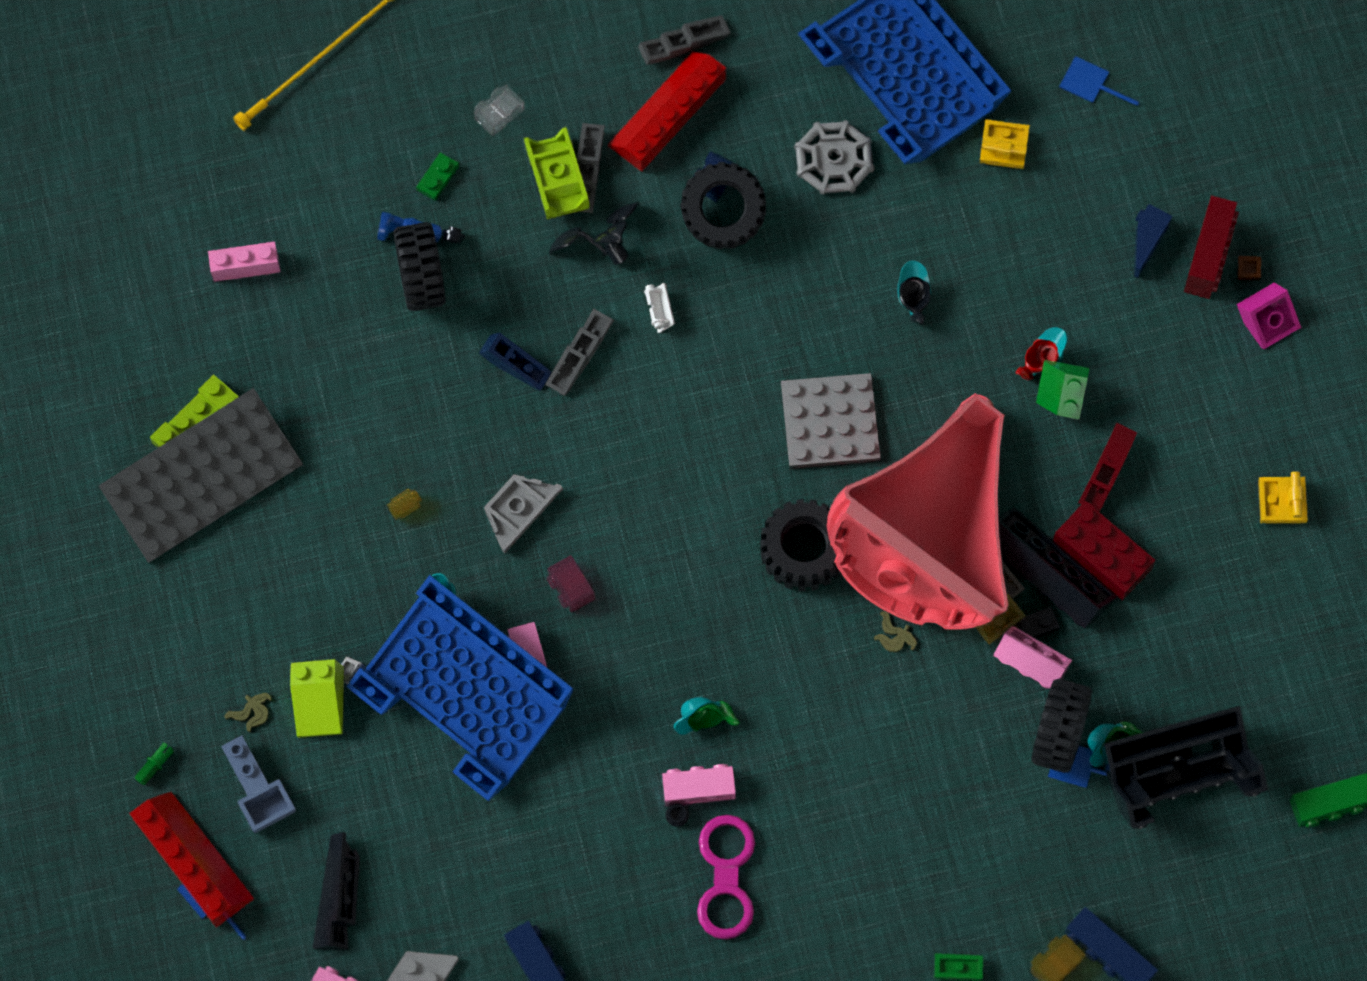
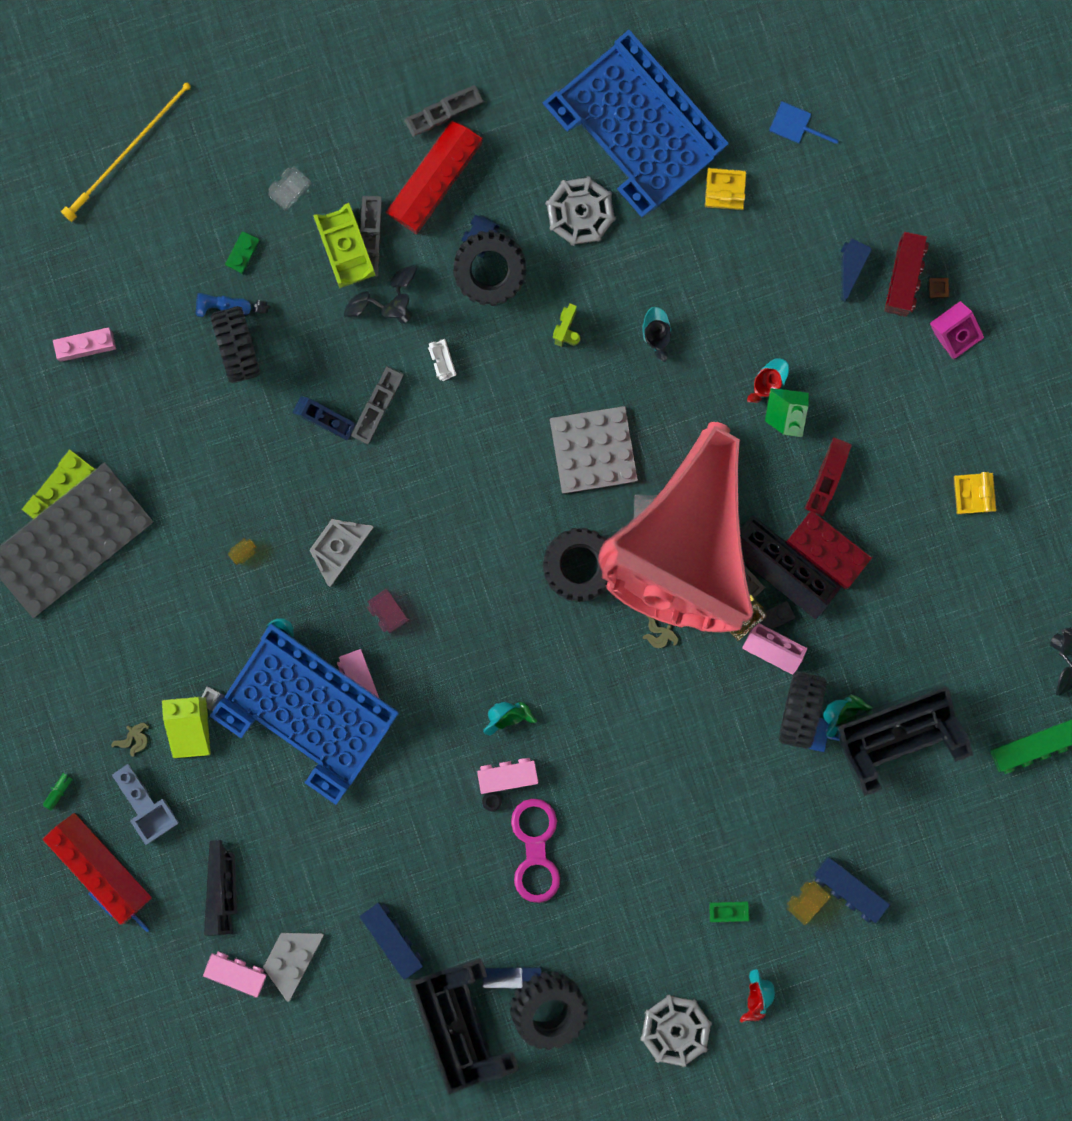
camera: 10 degrees left, 15 degrees up
(805, 283) = (562, 332): none -> lime plate

